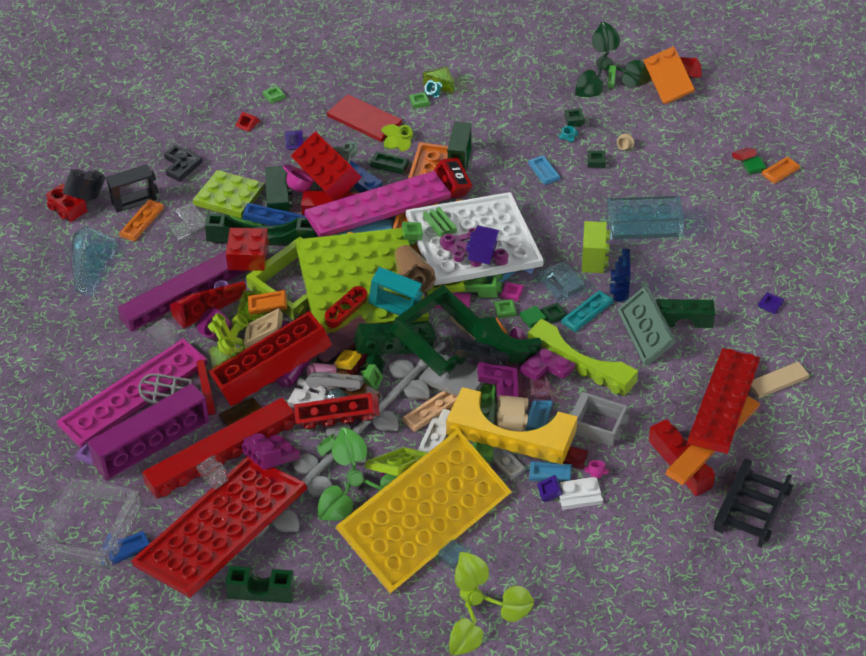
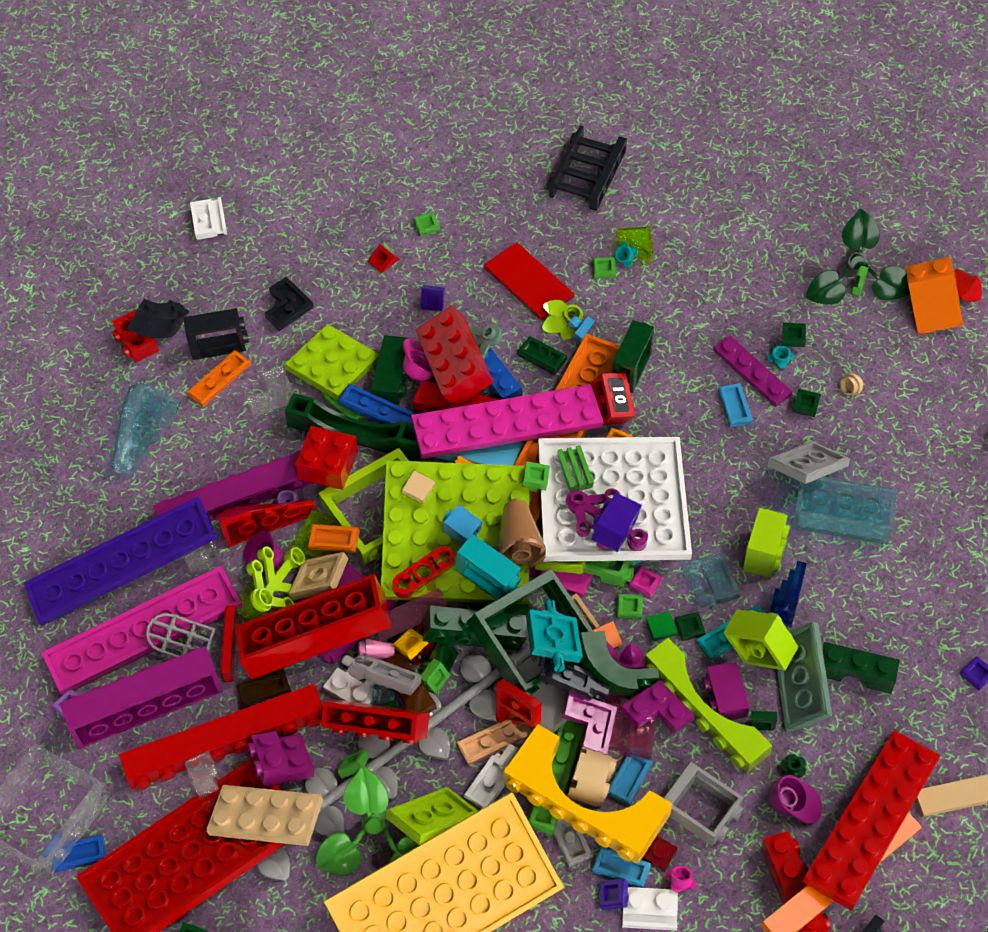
camera: 15 degrees right, 10 degrees up
(100, 117) = (208, 218): none -> white plate
(102, 347) = (120, 560): none -> dark purple plate
(271, 485) = (265, 815): none -> tan plate
(326, 251) = (418, 487): none -> tan tile
(365, 268) = (461, 524): none -> dark azure brick
(400, 45) = (601, 181): none -> black fence
(413, 138) = (580, 327): none -> dark azure tile
(442, 378) = (516, 705): none -> red wing
(458, 324) = (554, 635): none -> teal plate
(550, 146) = (752, 371): none -> magenta plate
(593, 344) = (726, 691): none -> magenta brick
(610, 191) = (808, 462): none -> light grey tile
(610, 305) = (761, 639): none -> lime brick
(628, 357) = (763, 720): none -> dark green tile
(657, 388) = (800, 762): none -> dark green plate
(662, 402) = (796, 799): none -> magenta cap

